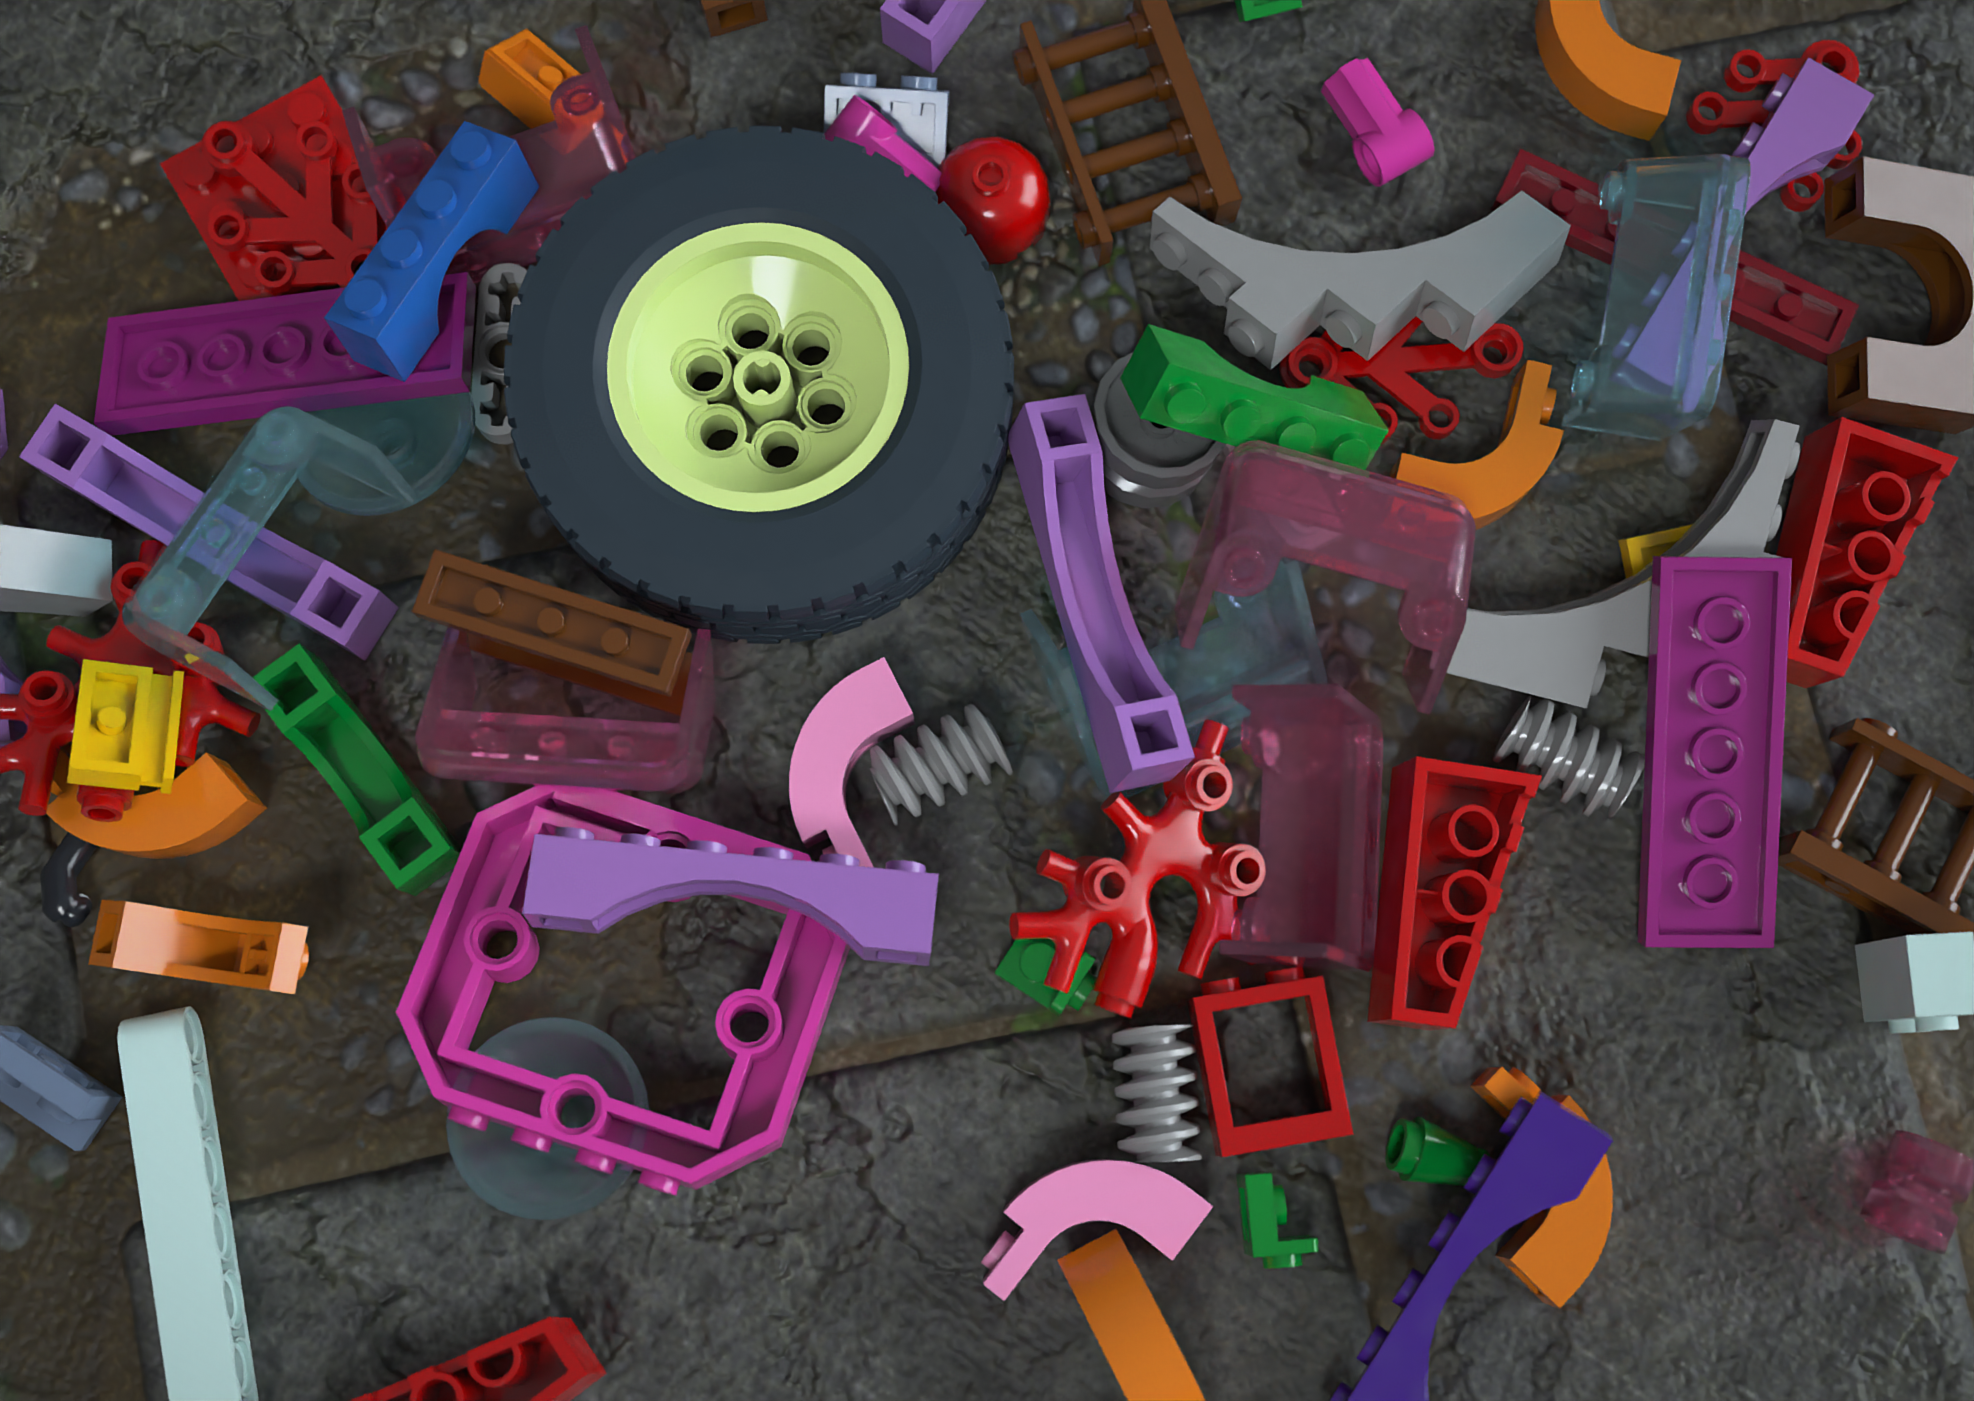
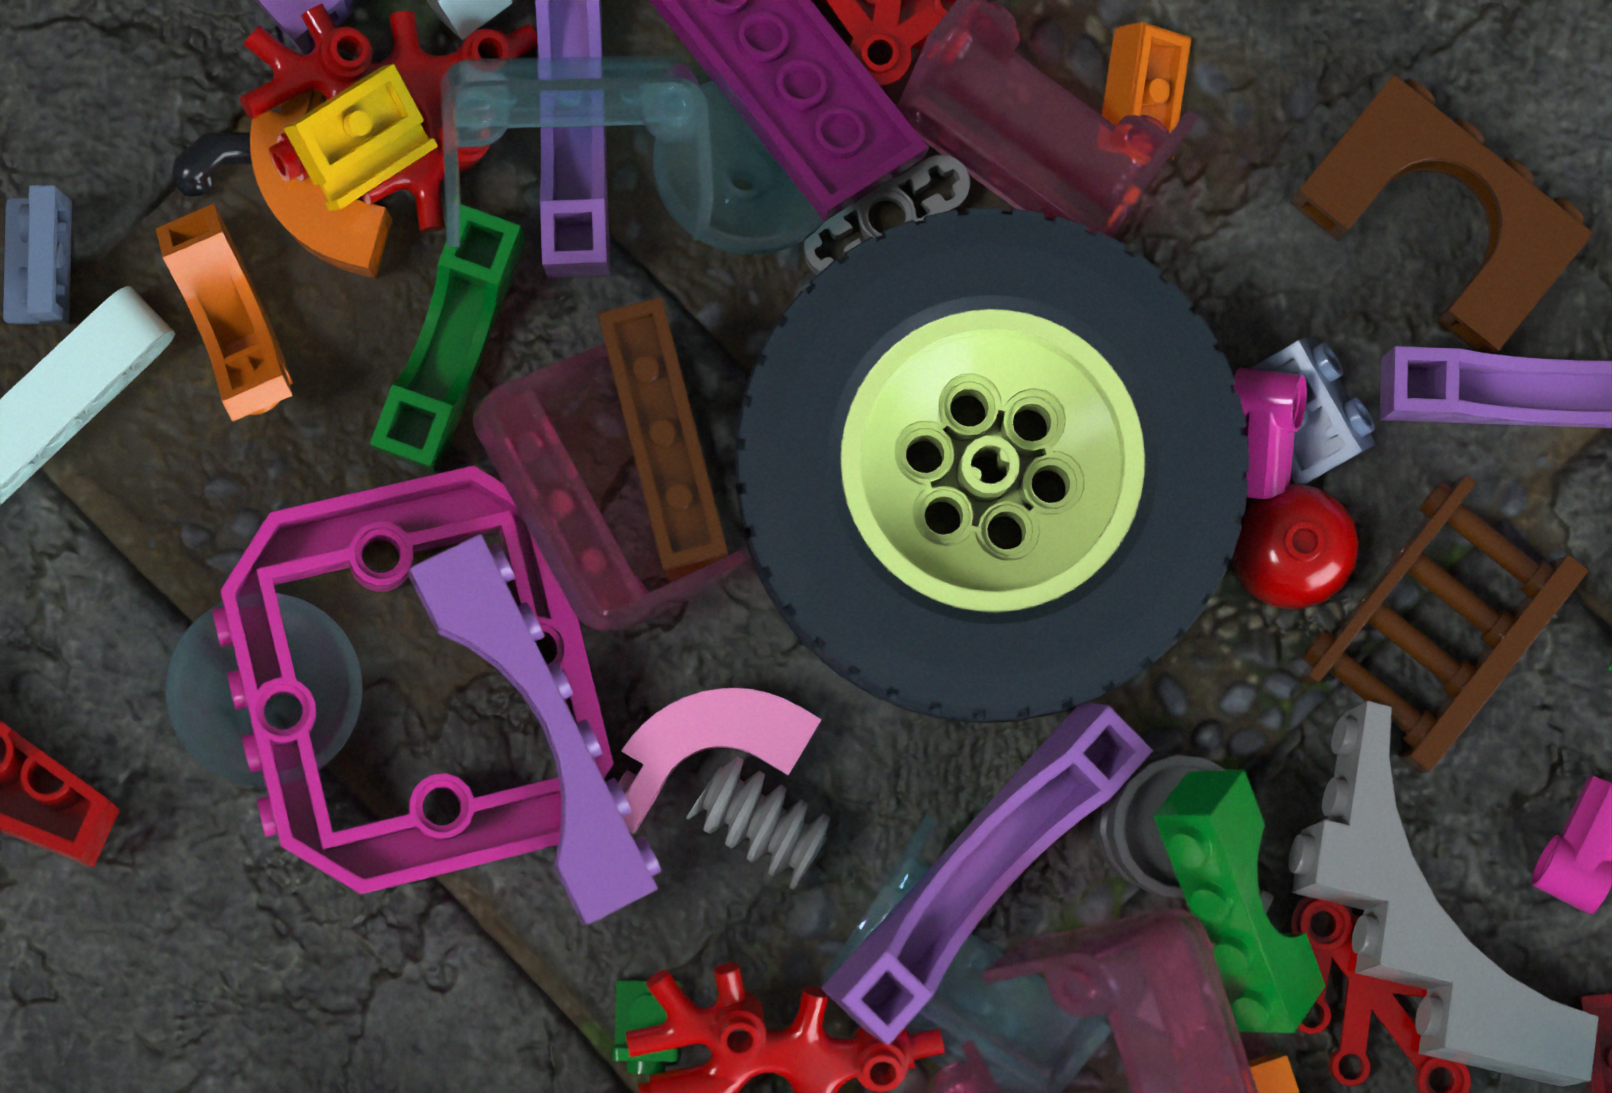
camera: 55 degrees right, 5 degrees up
(392, 301) = (859, 110): blue arch -> none

